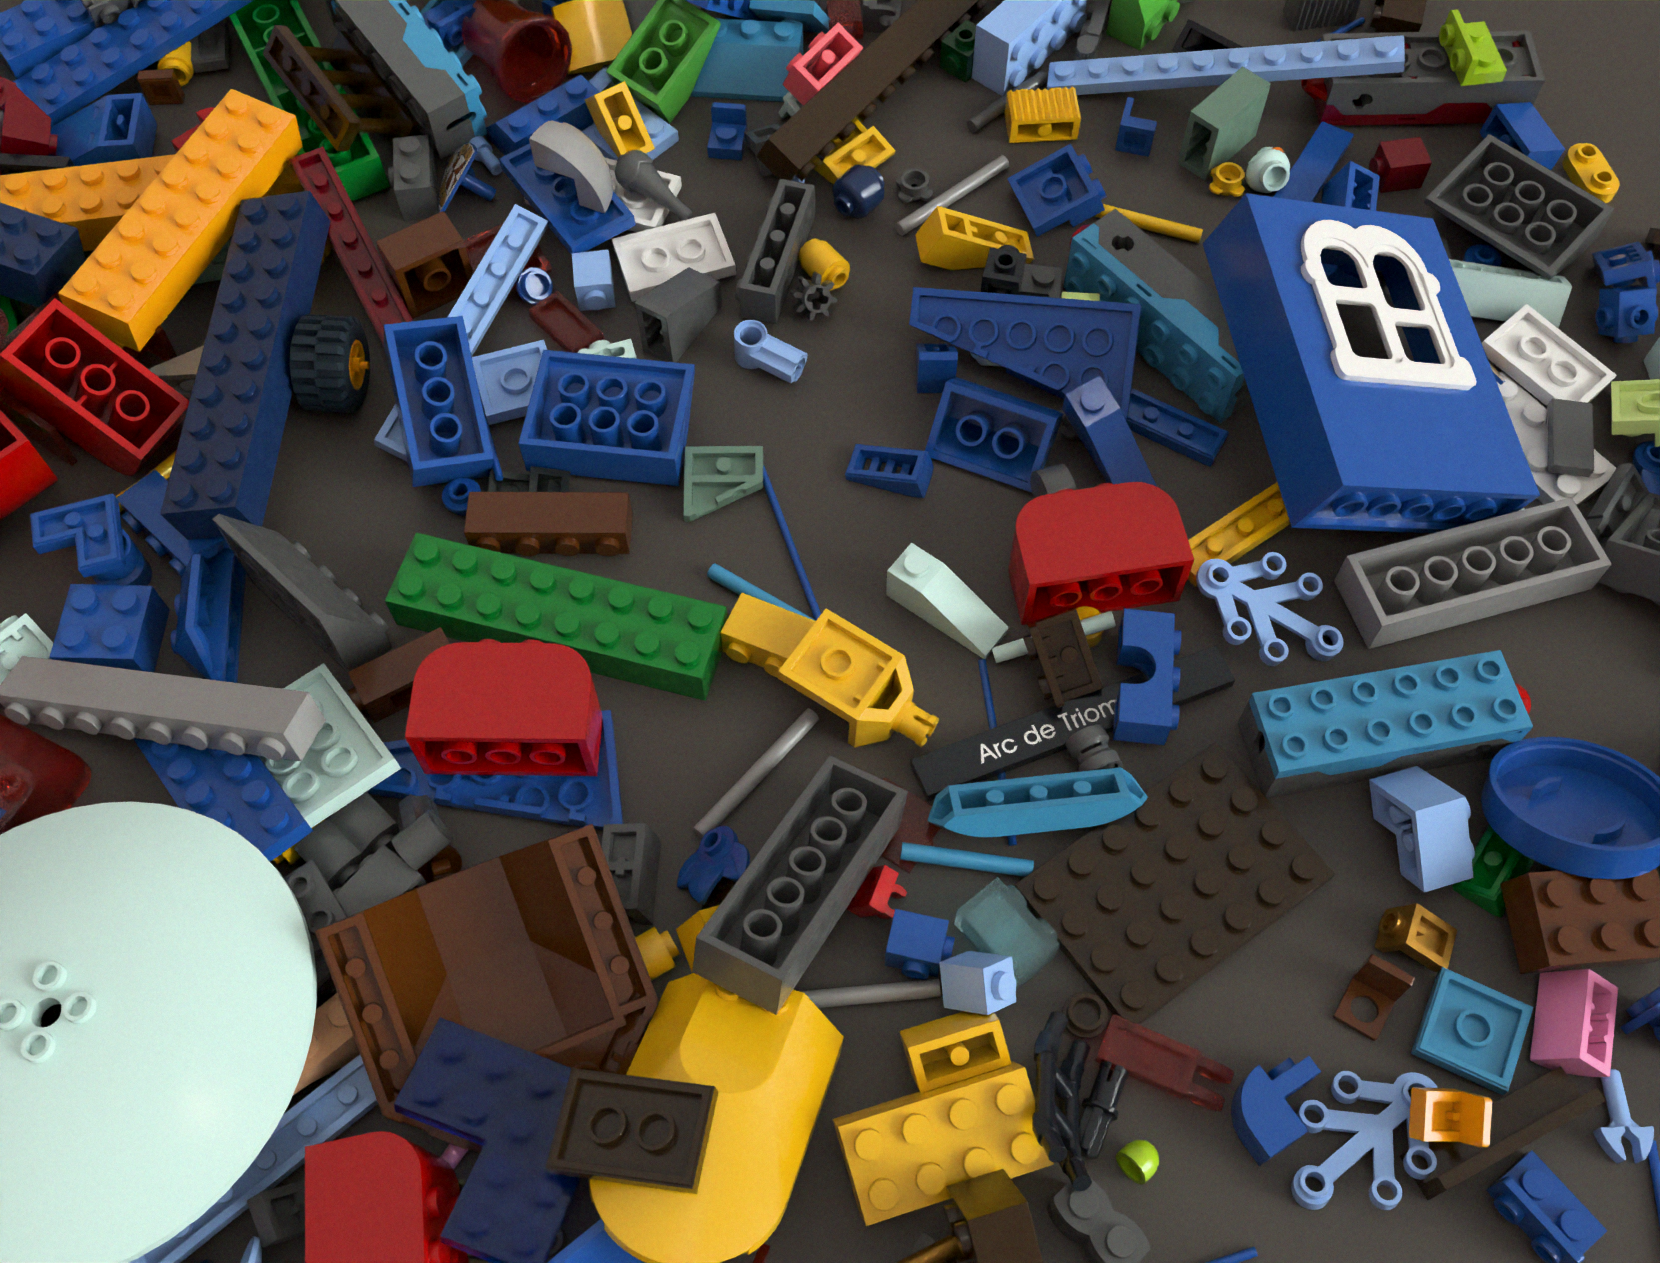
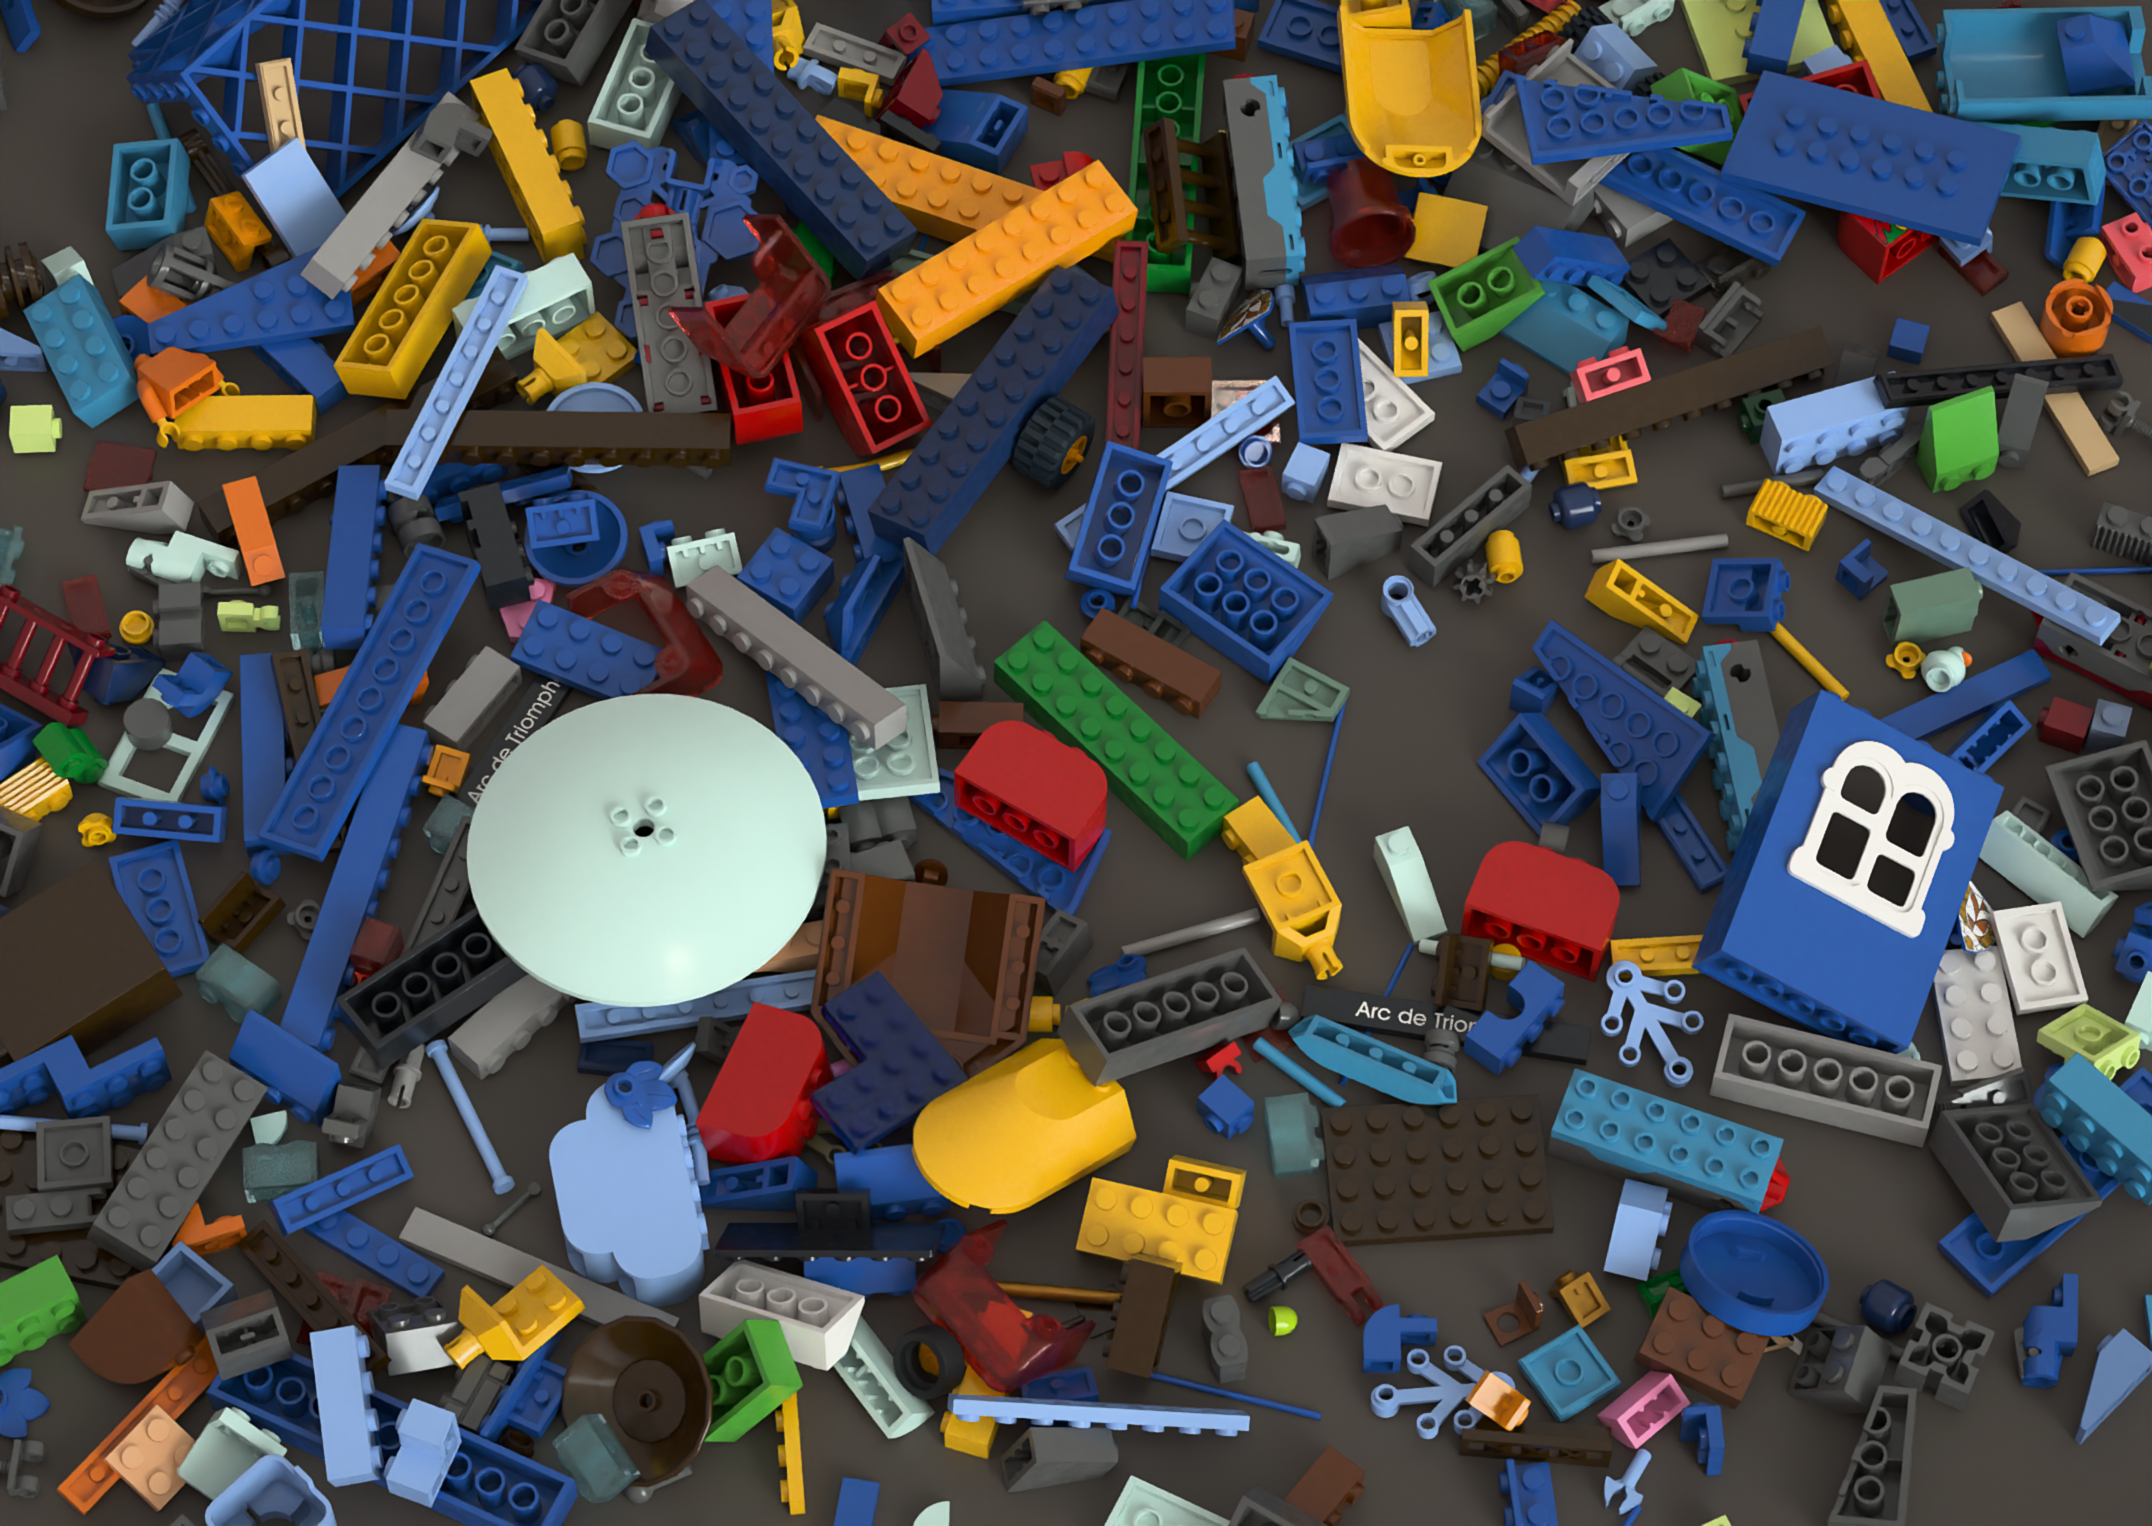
camera: 30 degrees right, 0 degrees up
(421, 831) = (930, 843): dark grey piece -> none
(574, 155) = (1346, 364): light grey brick -> none
(633, 1130) = (961, 1099): dark brown tile -> none
(636, 173) = (1395, 395): dark grey piece -> none
(875, 993) = (1176, 1124): light grey bar -> none
(905, 483) = (1455, 776): blue slope -> none
(915, 808) = (1286, 1017): none -> dark grey hinge
(978, 982) = (1247, 1151): light blue brick -> none
(1004, 267) = (1633, 654): black brick -> none
(1053, 1126) = (1262, 1249): black piece -> none
(1443, 145) = (2108, 726): none -> sand blue brick
(1570, 437) = (1995, 1024): dark grey tile -> none

